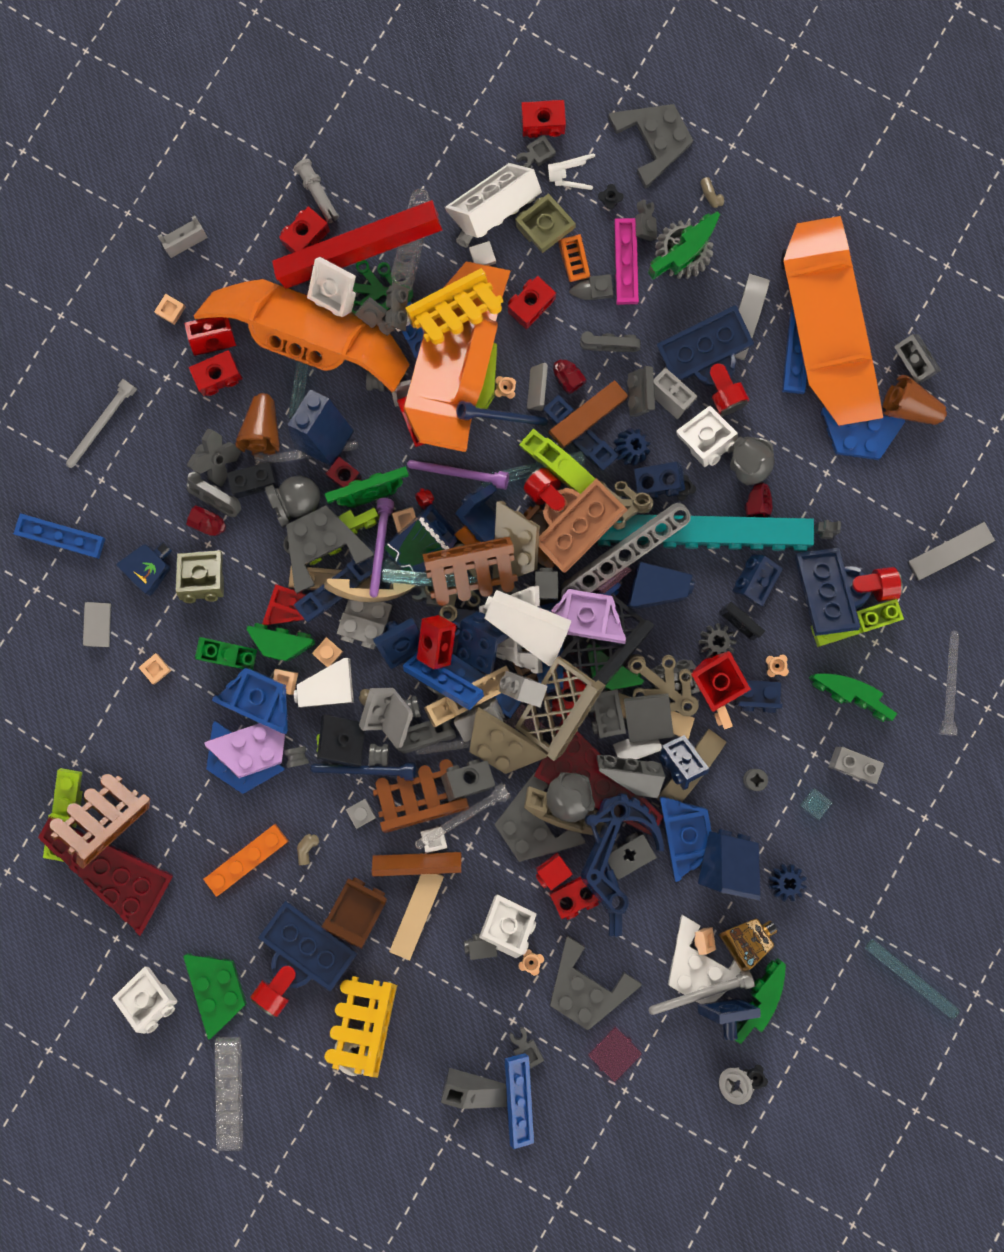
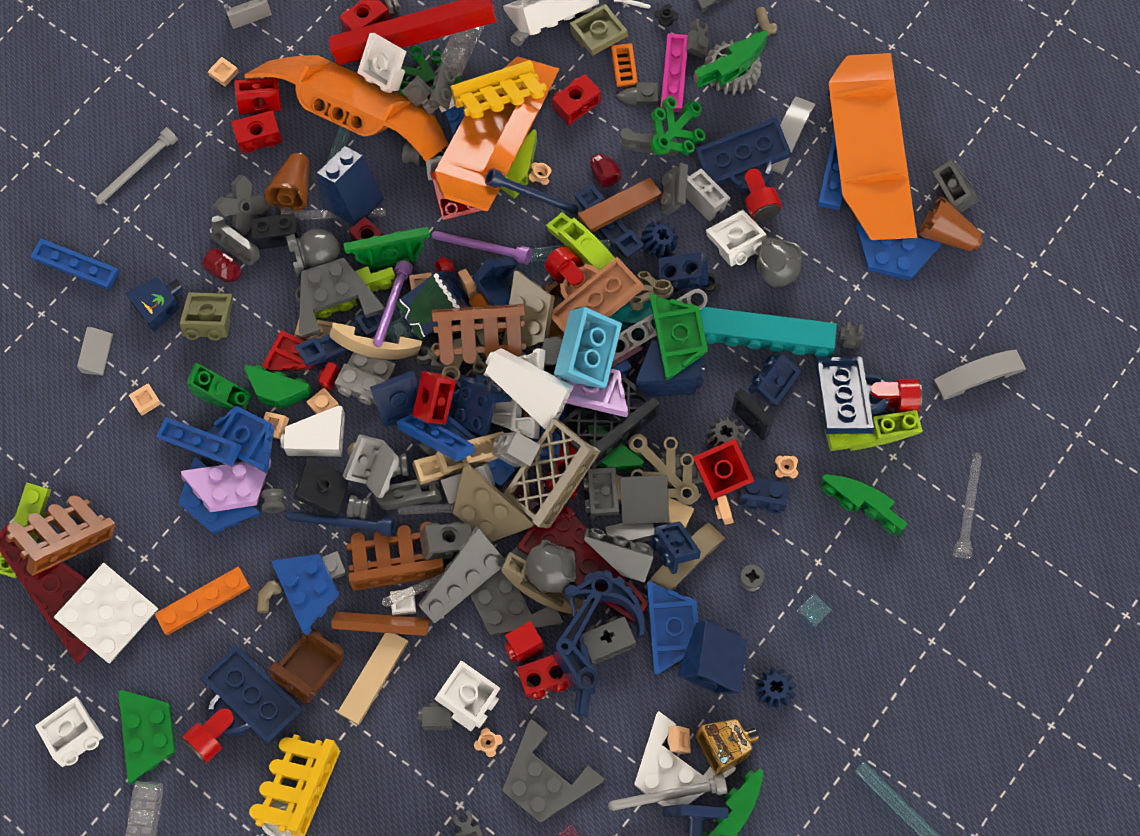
camera: 10 degrees right, 15 degrees down
(158, 886) = (106, 613): none -> white plate
(215, 709) = (198, 441): none -> blue plate
(328, 625) = (328, 376): none -> red plate
(343, 840) = (307, 587): none -> blue wing
(416, 578) = (424, 335): clear light blue axle -> none
(450, 515) = (468, 284): none -> light nougat plate
(483, 254) = (535, 52): white tile -> none
(494, 804) = (467, 571): none -> wing
(537, 387) = (572, 176): light grey slope -> none
(580, 581) = (587, 348): none -> medium azure slope
(623, 346) = (660, 142): none -> green plant
(666, 555) = (678, 334): none -> green wing
(759, 501) = (784, 303): dark red rock -> none
(856, 765) = (860, 573): light grey brick -> none

